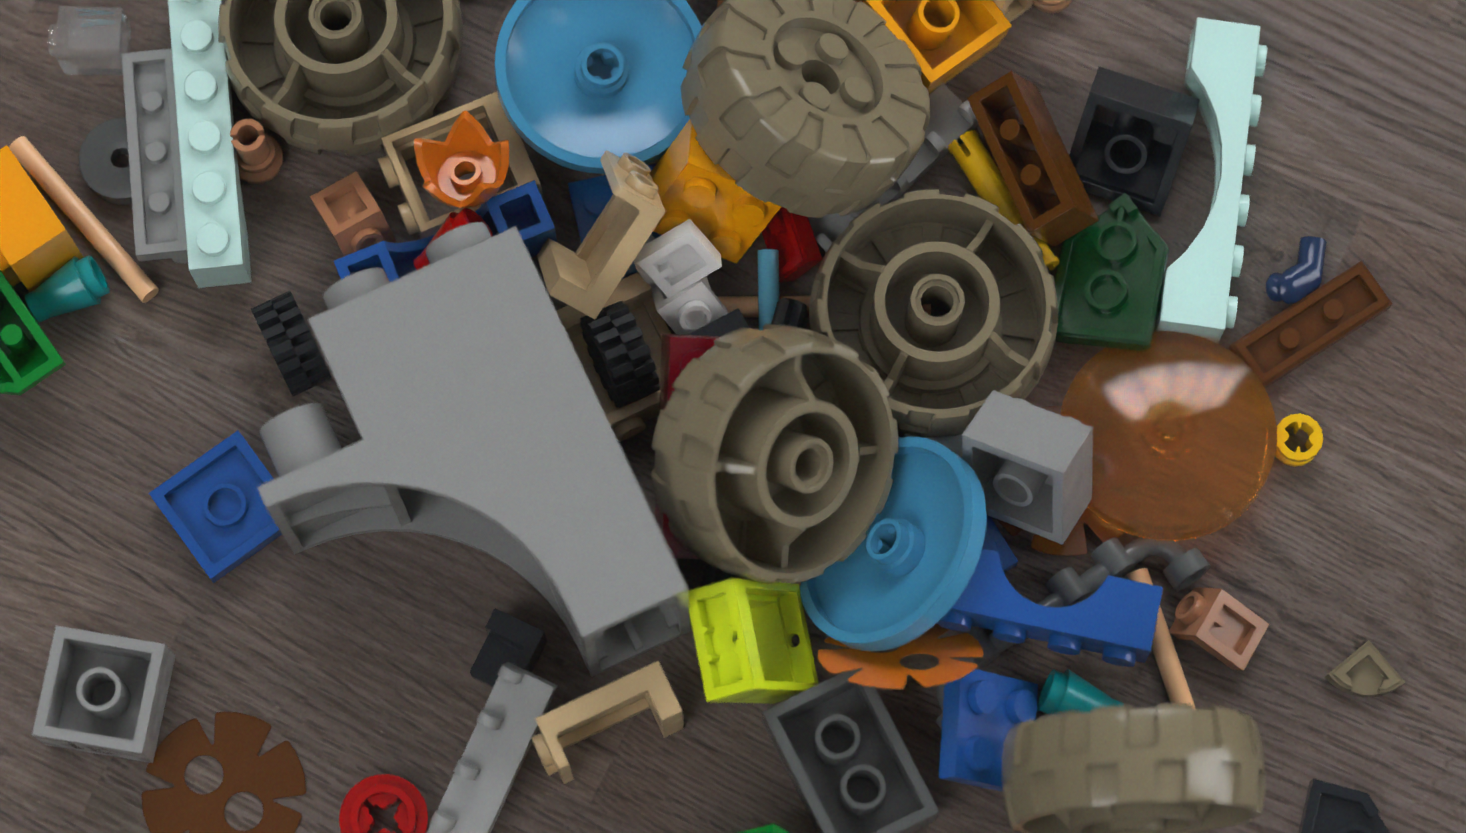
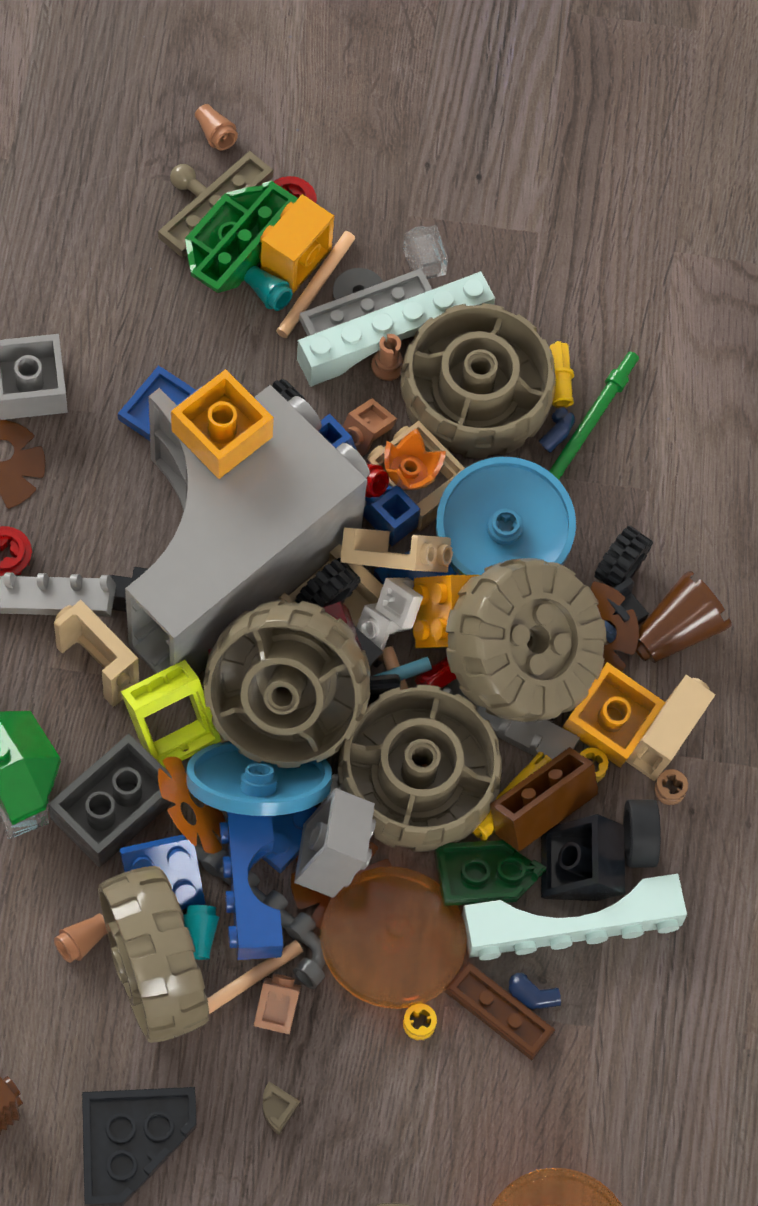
camera: 65 degrees right, 10 degrees down
(369, 406) = (222, 424): none -> light orange brick
(983, 64) = (600, 757): none -> yellow bush
(1123, 43) = (642, 833): none -> black tyre

